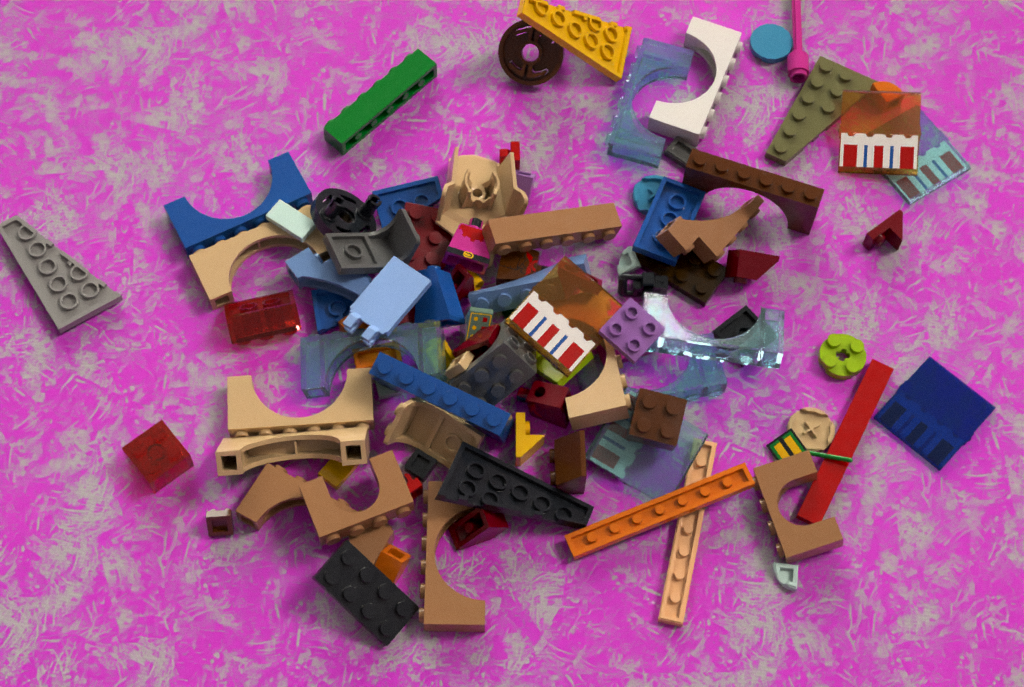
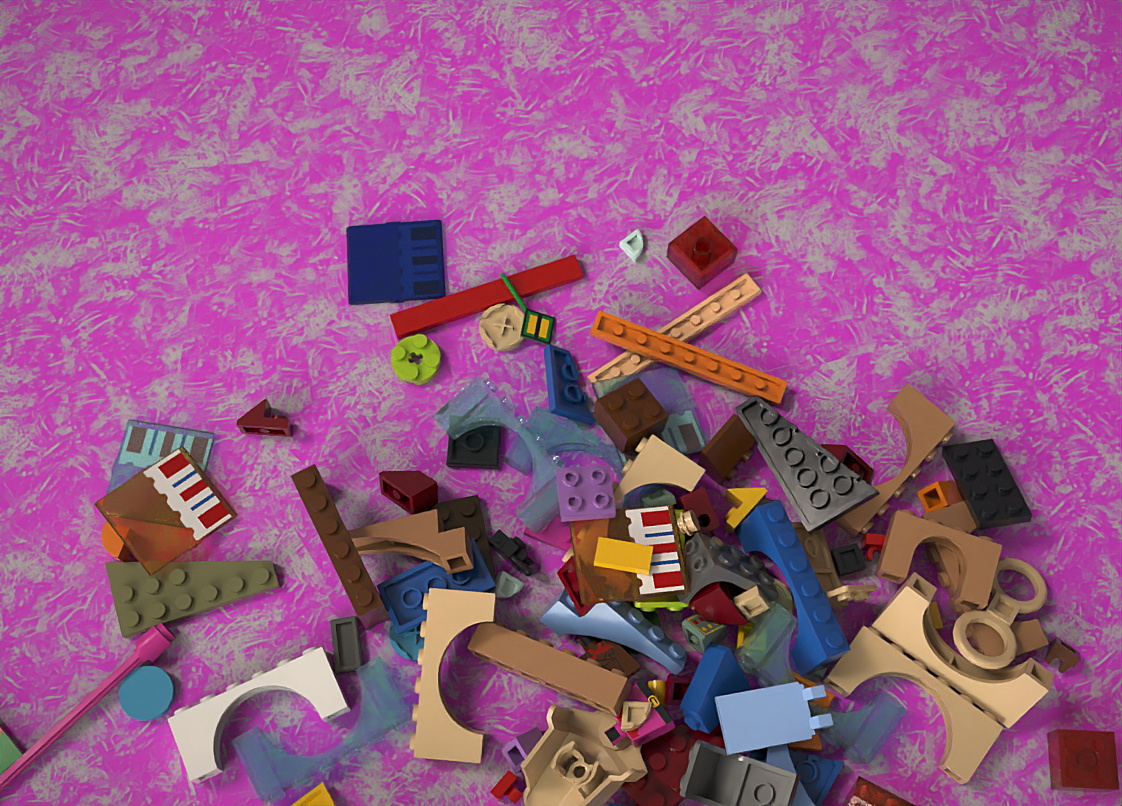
camera: 135 degrees left, 5 degrees up
(285, 505) = (1000, 615): none -> tan bar
(472, 237) = (635, 714): none -> tan tile
(547, 374) = (688, 522): none -> tan plate
(567, 305) = (623, 555): none -> yellow tile
(581, 378) = (658, 498): none -> sand green tile
(584, 151) = (437, 729): none -> tan arch
(721, 416) = (563, 388): none -> blue wing
(729, 602) = (701, 252): none -> clear red brick
(794, 540) = (577, 308): medium nougat arch -> none

